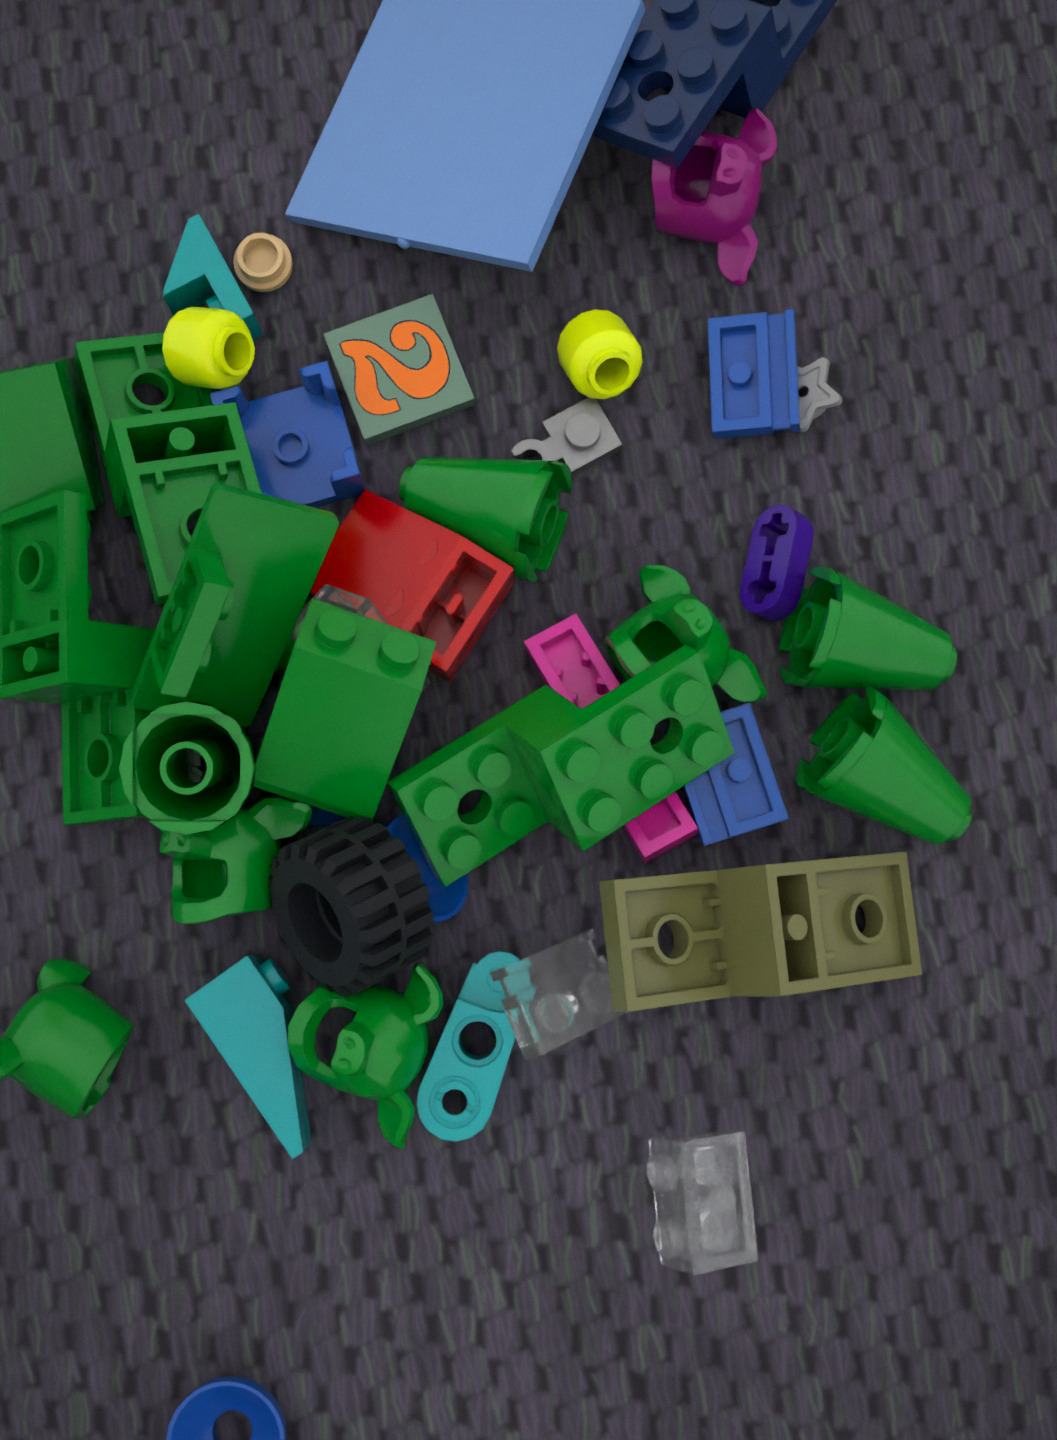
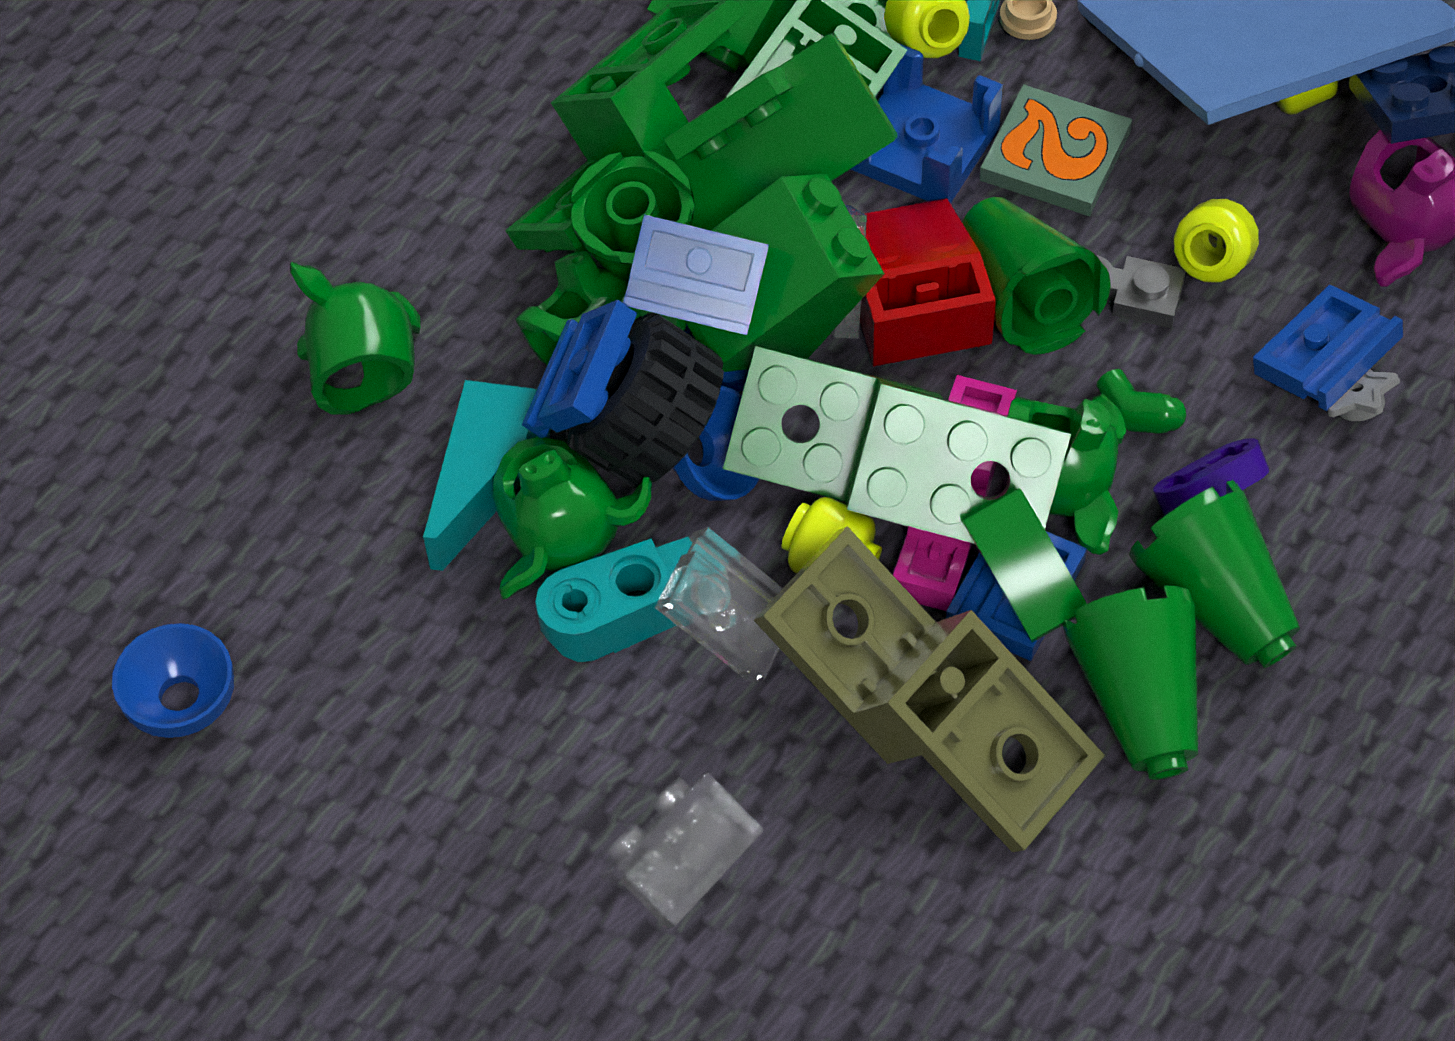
camera: 50 degrees right, 25 degrees down
(290, 940) = (580, 369): none -> blue plate
(303, 786) = (695, 274): none -> plate
(572, 876) = (817, 523): none -> neon yellow head
(670, 547) = (1142, 410): none -> green arm
(743, 774) = (1025, 564): none -> green slope

